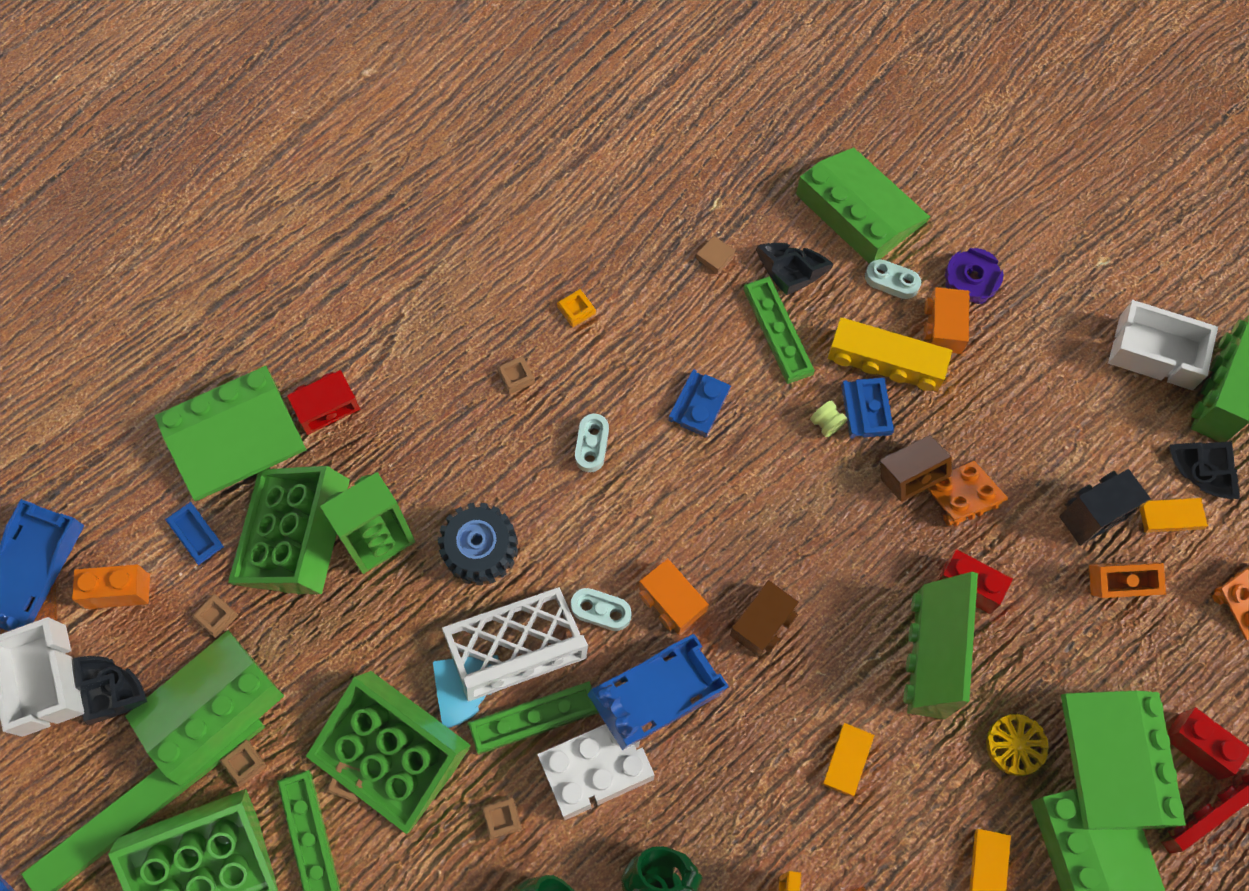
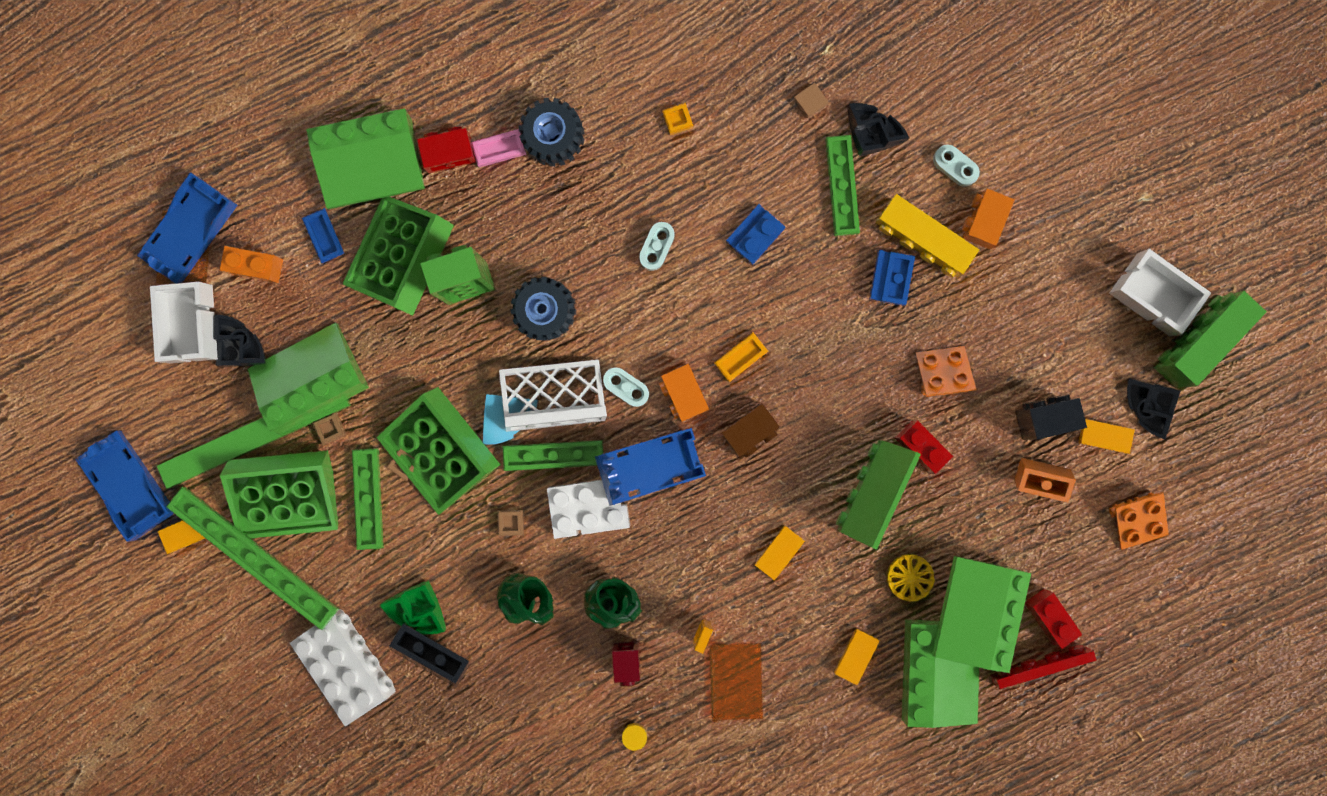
camera: 15 degrees right, 20 degrees up
(215, 615) = (327, 308): medium nougat tile -> none
(383, 387) = (498, 148): none -> bright pink tile
(439, 352) = (551, 132): none -> black wheel
(516, 375) = (611, 167): medium nougat tile -> none
(725, 540) = (741, 357): none -> light orange tile
(828, 419) = (856, 279): yellowish green wheel -> none
(860, 204) = (954, 85): bright green slope -> none
(915, 468) = (912, 341): reddish brown brick -> none
(981, 262) = (1041, 181): dark purple plate -> none

